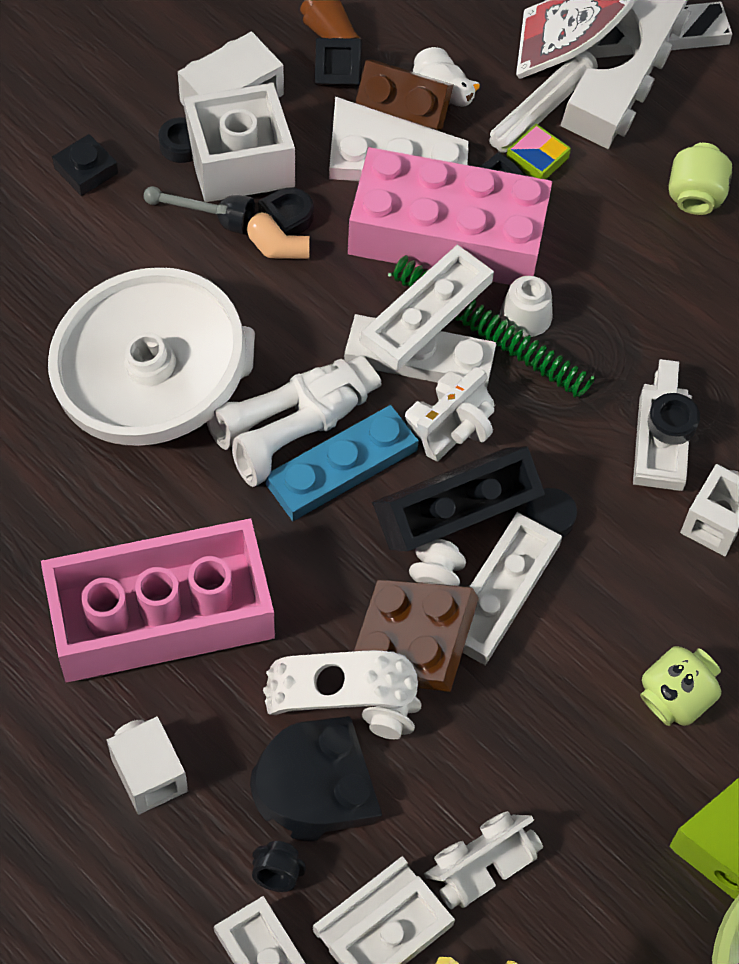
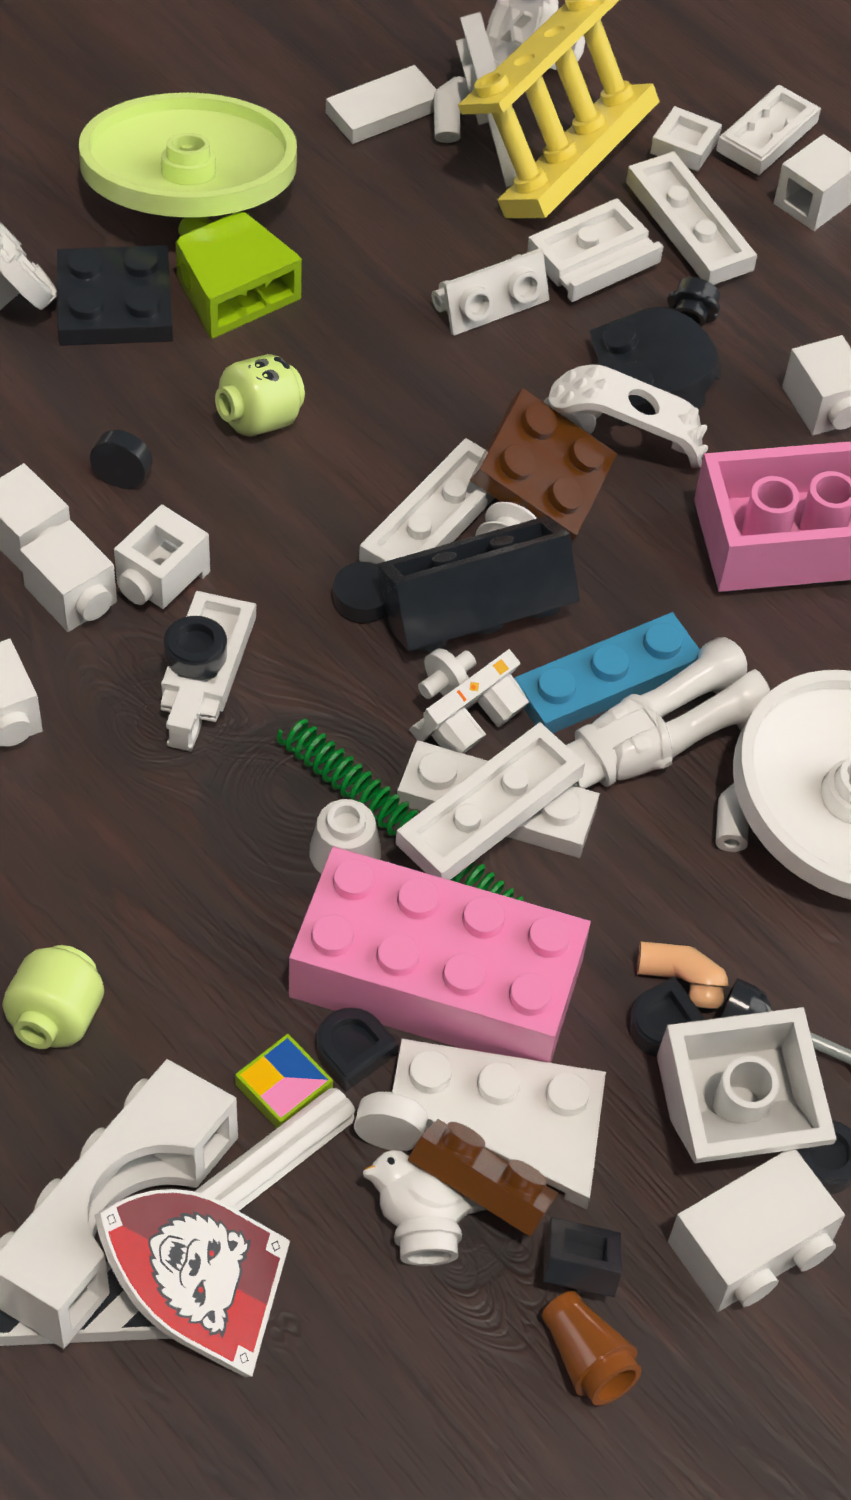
camera: 175 degrees left, 5 degrees down
(467, 123) = (390, 1121): none -> white tile

